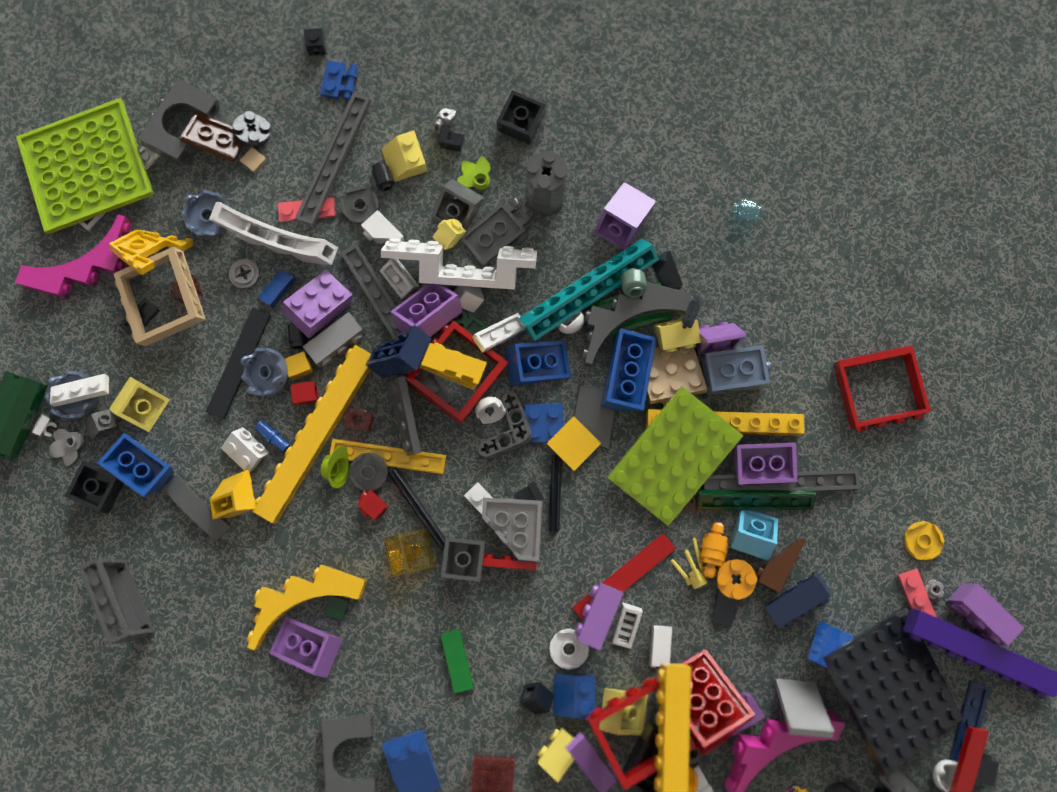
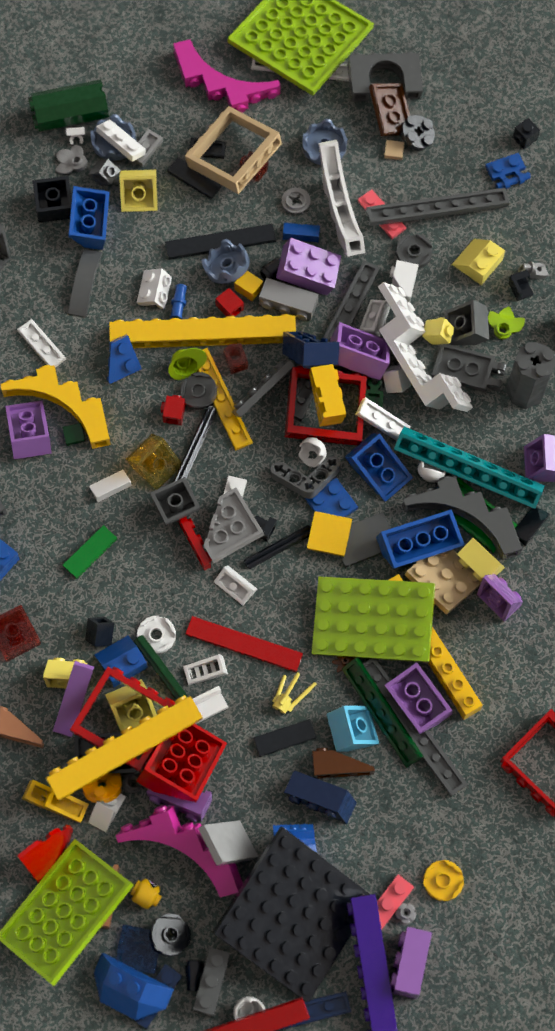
camera: 55 degrees right, 10 degrees down
(98, 365) = (150, 142): none -> light grey plate
(139, 244) = (265, 110): yellow wing -> none
(162, 348) = (194, 179): none -> black tile
(230, 584) = (41, 344): none -> white tile
(233, 496) = (110, 302): yellow slope -> none
(295, 521) = (122, 359): none -> blue wing
(382, 176) = (450, 252): black brick -> none
(406, 604) = (110, 485): none -> white slope
(566, 551) = (235, 585): none -> white slope
(598, 615) = (198, 633): medium lavender brick -> none
(603, 665) = (159, 667): none -> dark green axle
(634, 283) = (497, 496): sand green head -> none
(691, 313) = (503, 557): black axle -> none
(713, 550) = (315, 700): light orange piece -> none
(736, 370) = (481, 627): sand blue torso -> none
(747, 578) = (310, 742): light orange plate -> none

